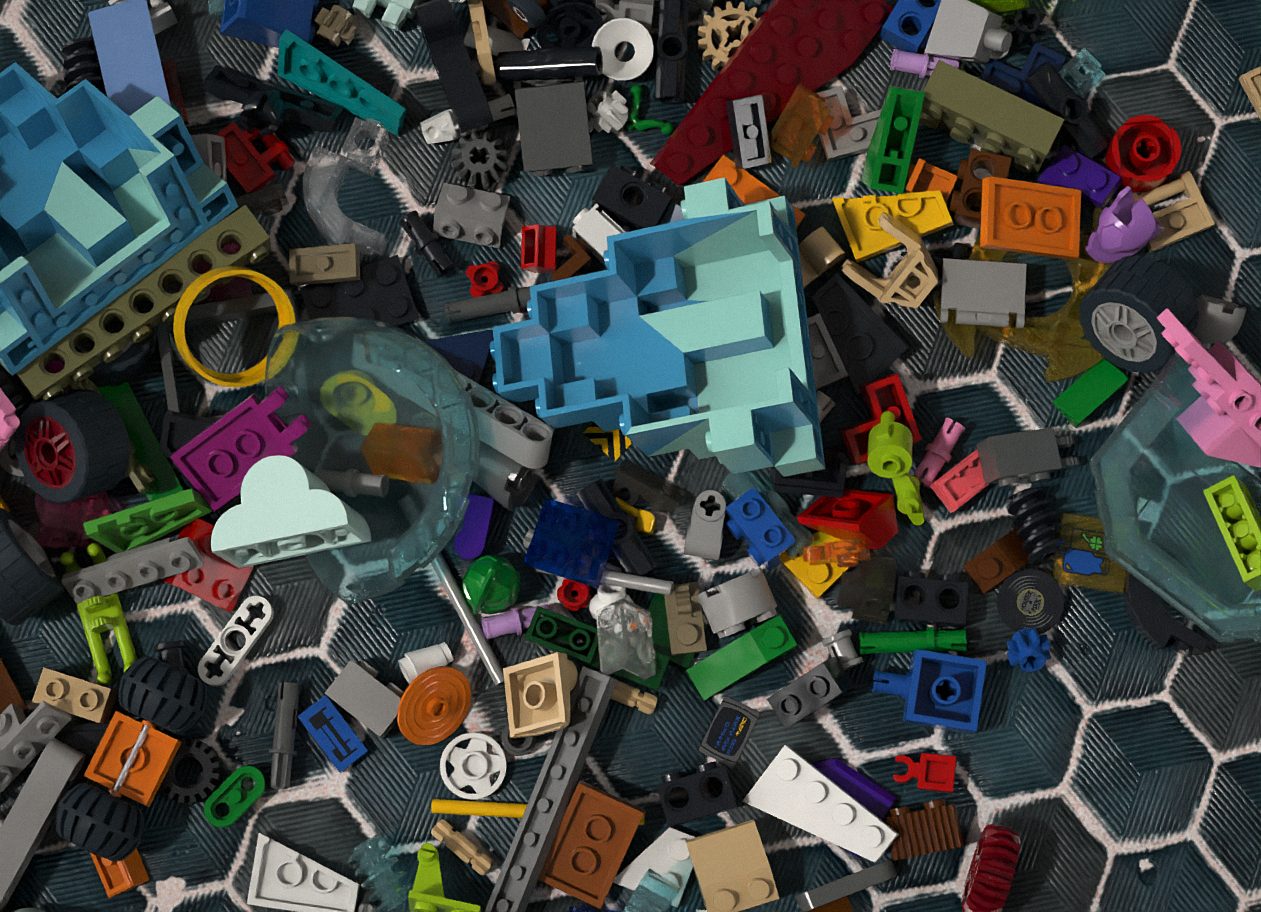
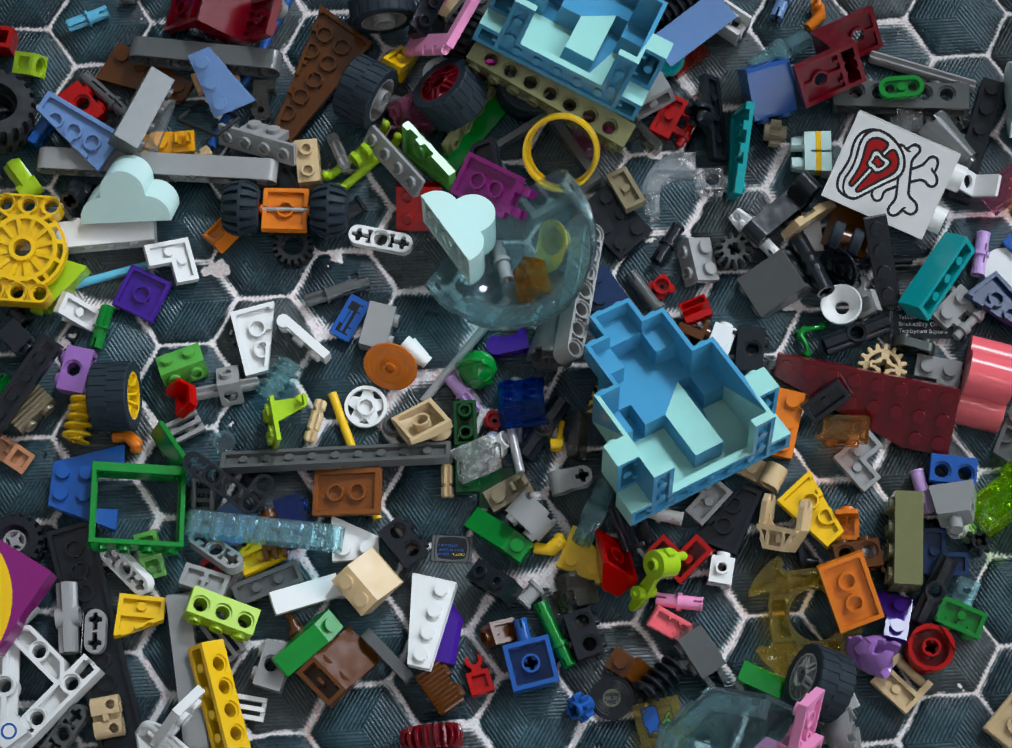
camera: 70 degrees right, 5 degrees down
(74, 644) = (338, 151): none -> light grey axle
(235, 796) = (290, 279): green plate -> none
(333, 814) = (302, 338): none -> white plate
(607, 111) = (798, 312): white gear -> none
(760, 529) = (581, 511): blue bracket -> none
(788, 590) = (554, 546): none -> yellow arm
(843, 553) = (588, 565): clear orange plate -> none
(879, 718) = (498, 633): none -> reddish brown bracket
(893, 140) = (860, 488): green slope -> none
(924, 389) = (717, 577): none -> white brick
(983, 292) = (791, 584): light grey piece -> none
(1118, 94) = (960, 618): none -> green bracket

